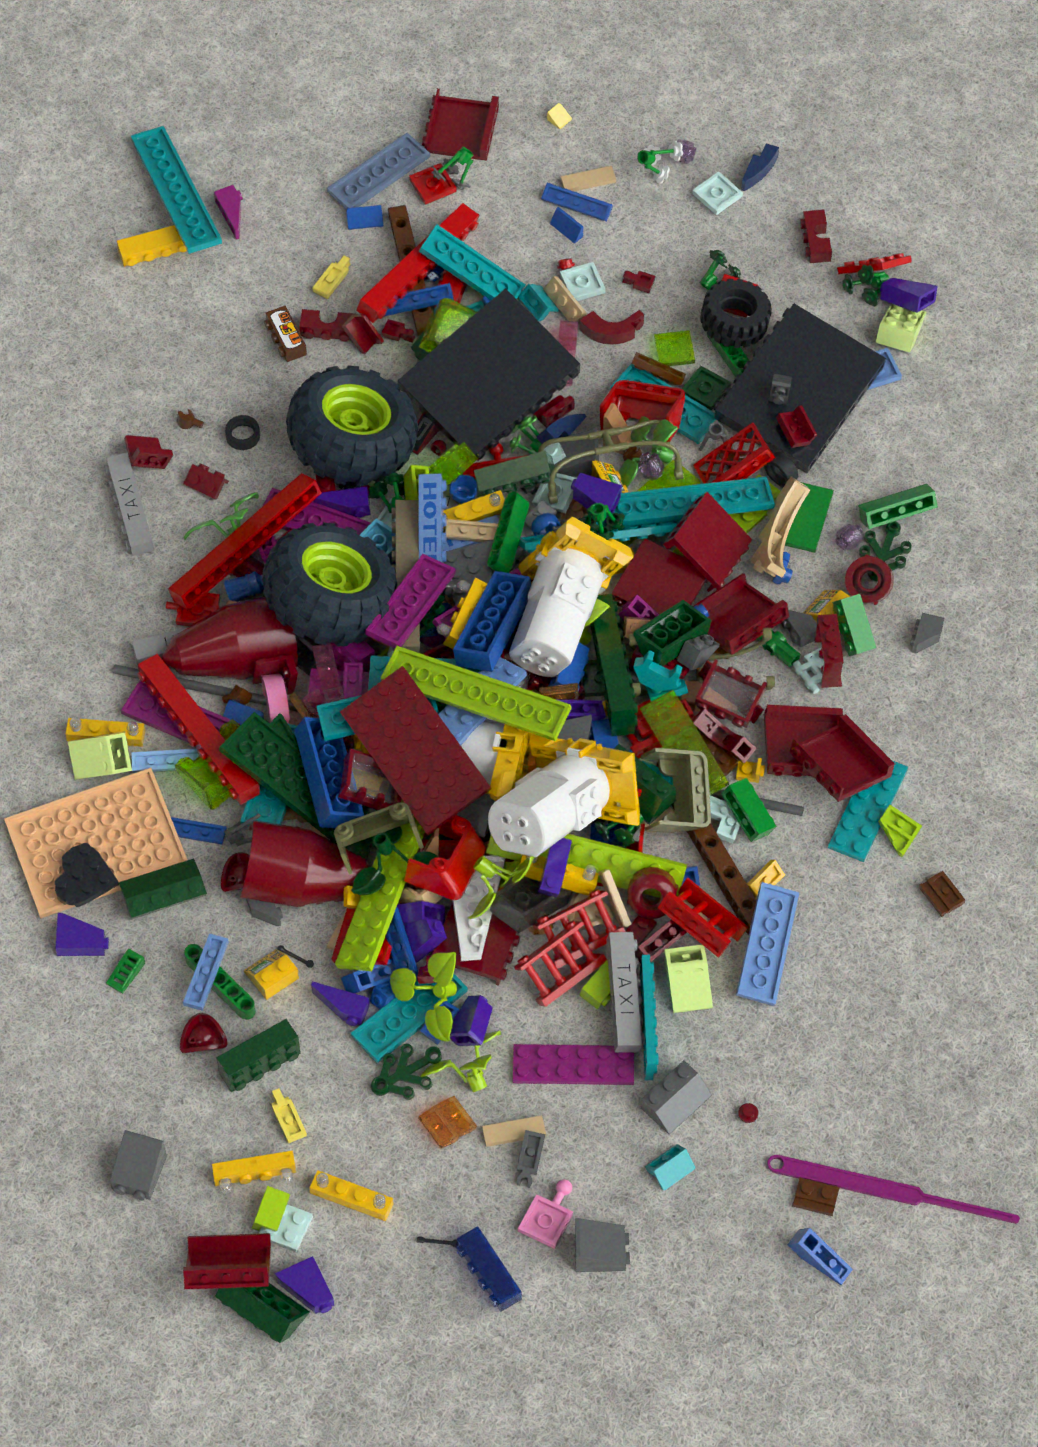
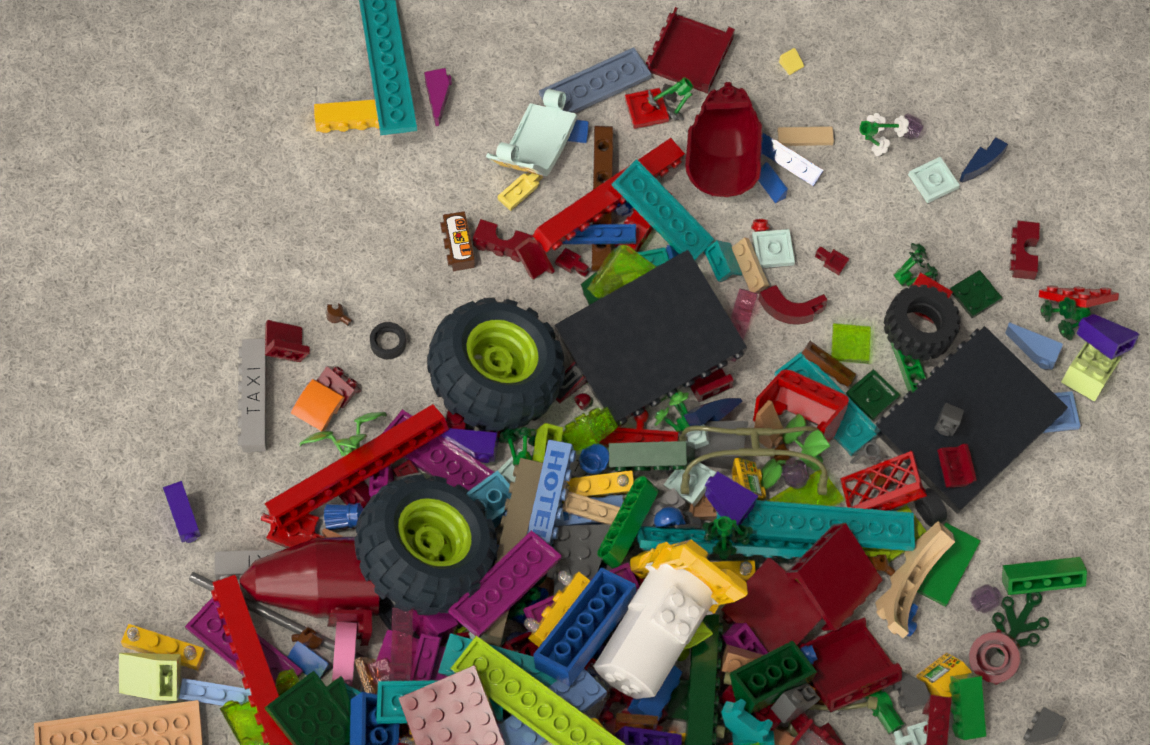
camera: 10 degrees right, 5 degrees up
(90, 614) = (182, 512): none -> dark purple slope
(192, 499) = (317, 405): none -> orange slope
(337, 227) = (538, 137): none -> light aqua panel
(516, 197) = (725, 144): none -> dark red windscreen
(748, 525) = (880, 563): none -> reddish brown piece
(780, 283) = (975, 294): none -> dark green plate
(847, 317) = (1037, 347): none -> medium blue slope

